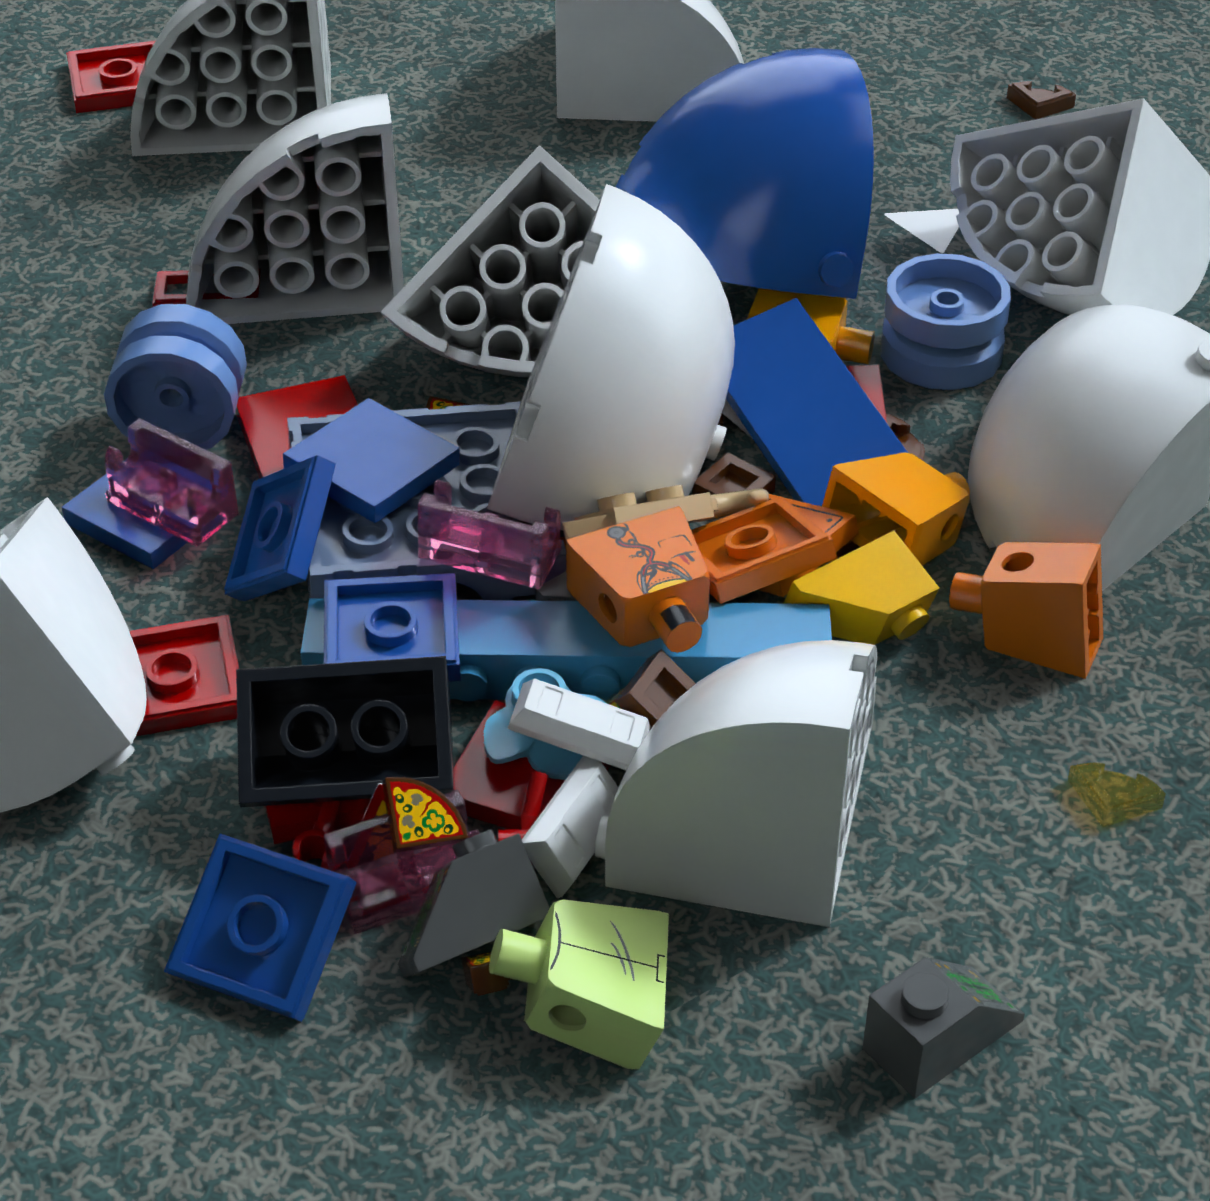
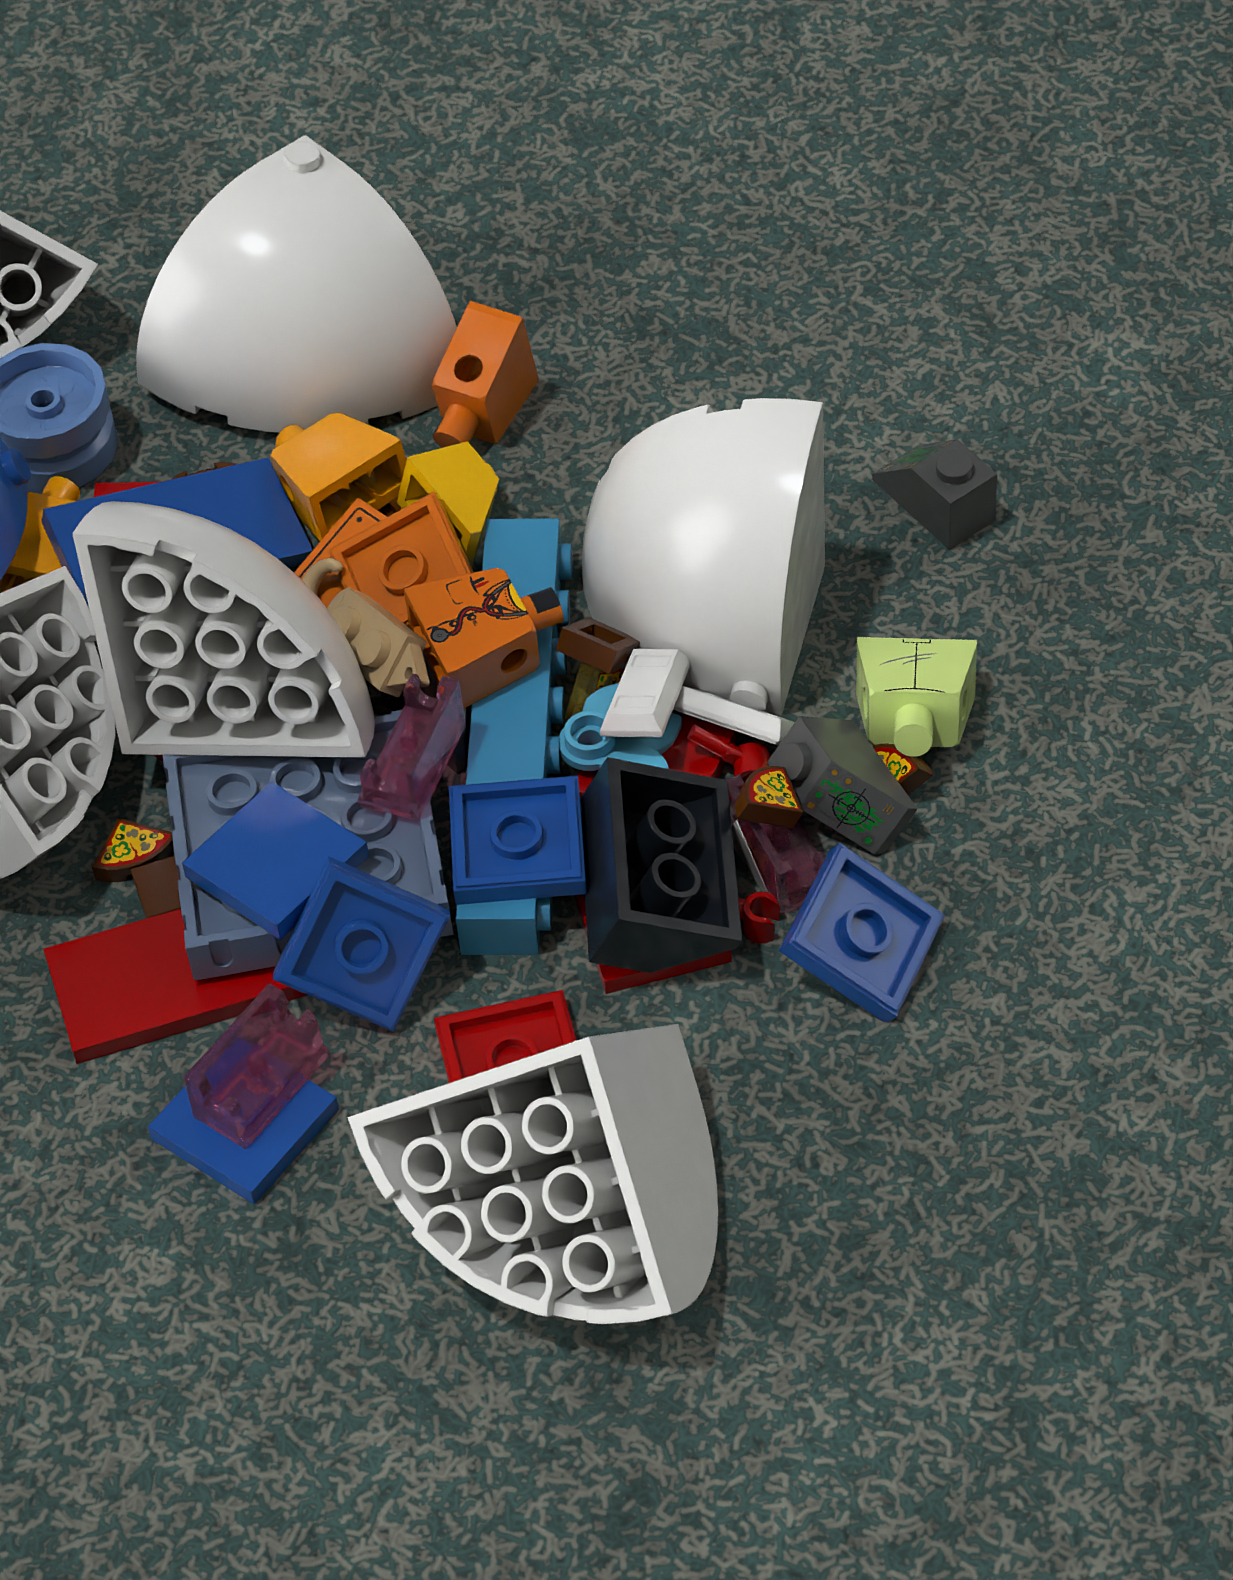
camera: 85 degrees left, 10 degrees up
(177, 373) = (82, 1074): medium blue wheel -> none
(1114, 795) = (684, 370): clear yellow tile -> none

